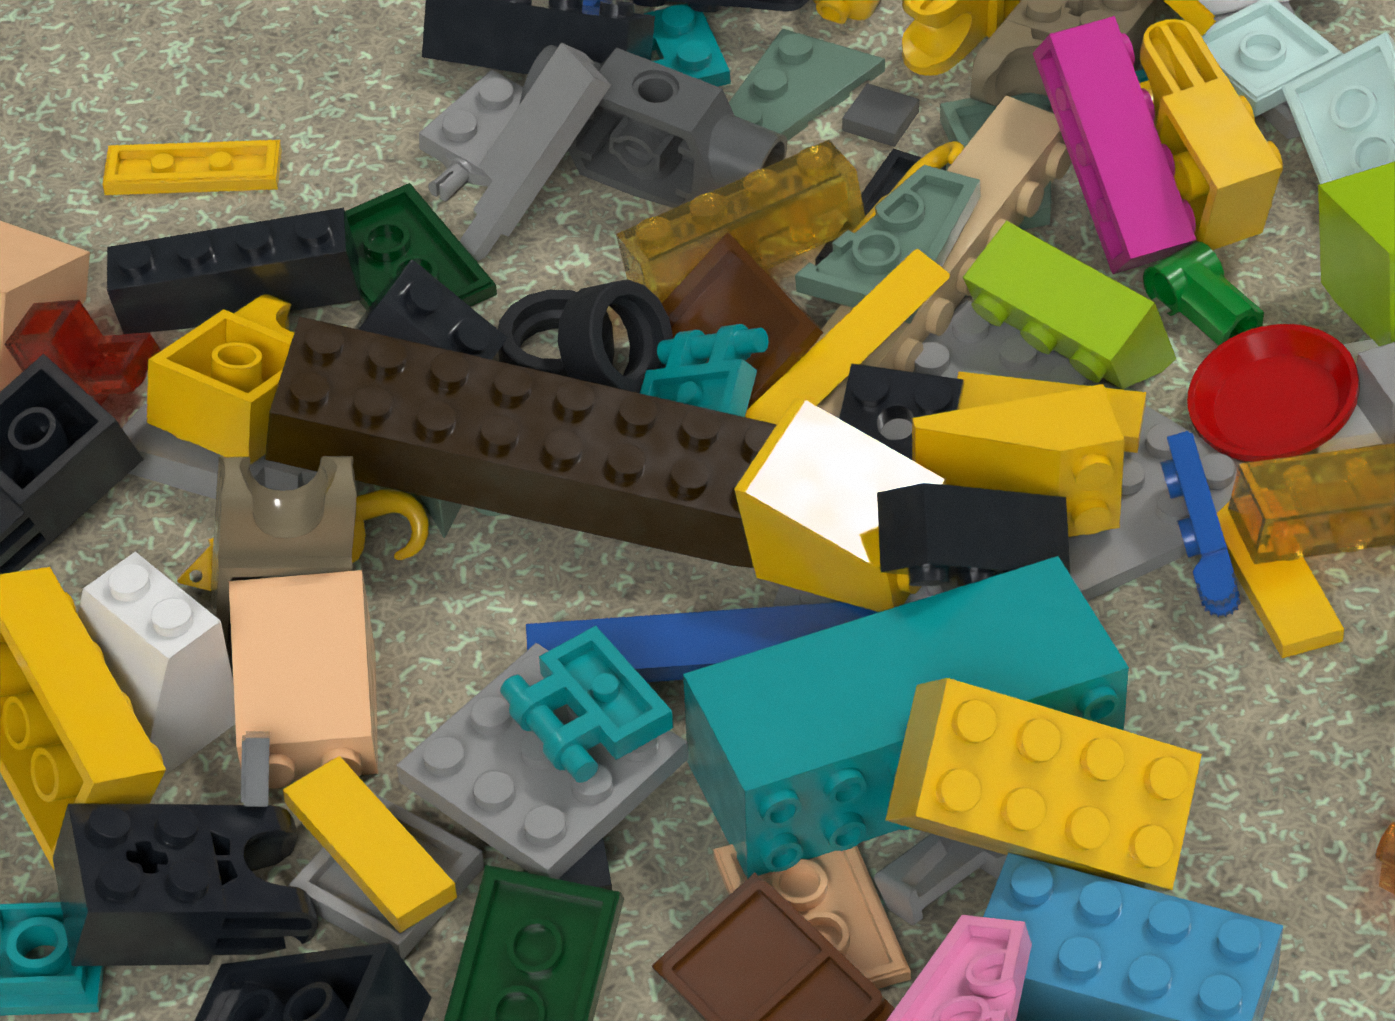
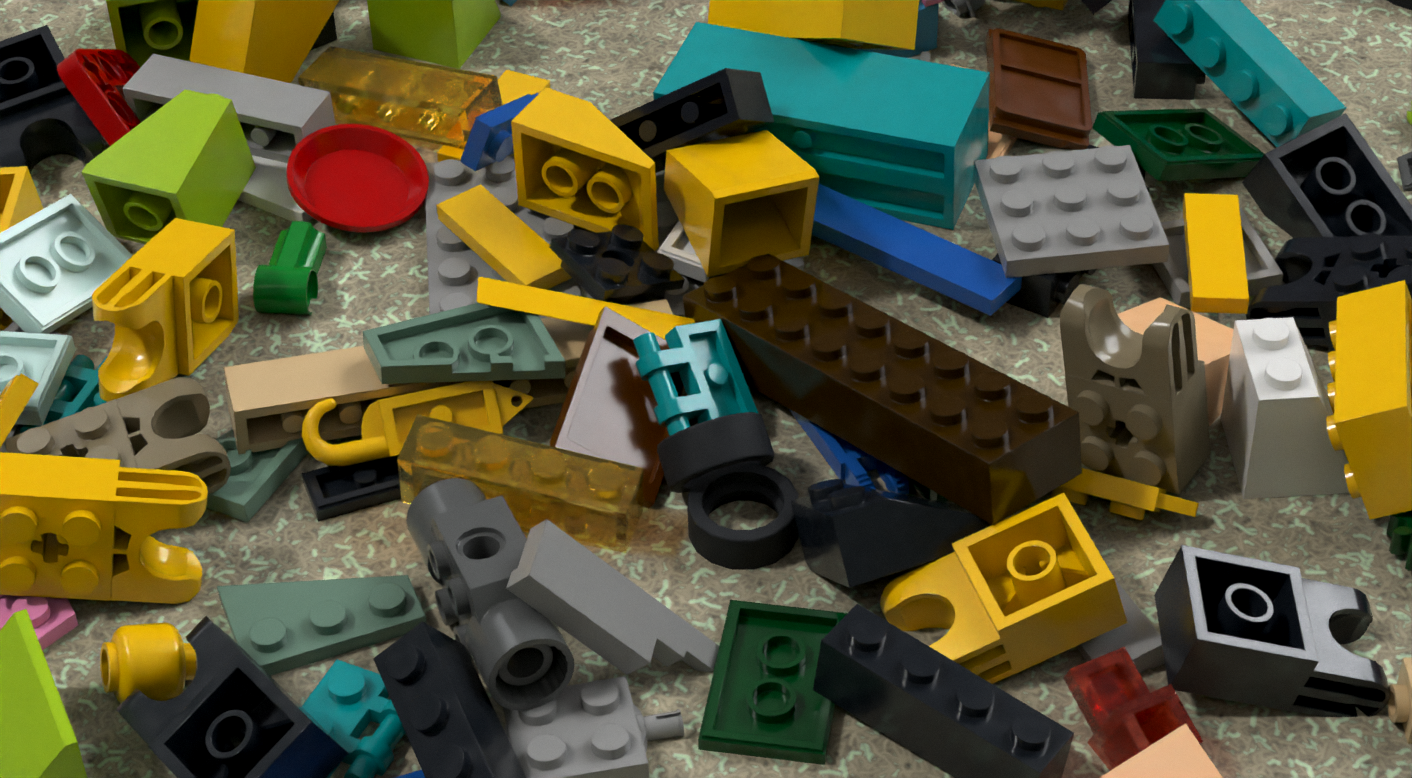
camera: 140 degrees left, 5 degrees down
(255, 768) = (1261, 300): tile -> none
(604, 693) = (1011, 176): teal plate -> none
(880, 115) = (281, 552): dark grey tile -> none
(1068, 309) = (405, 263): lime slope -> none
(1114, 144) = (224, 326): dark pink brick -> none

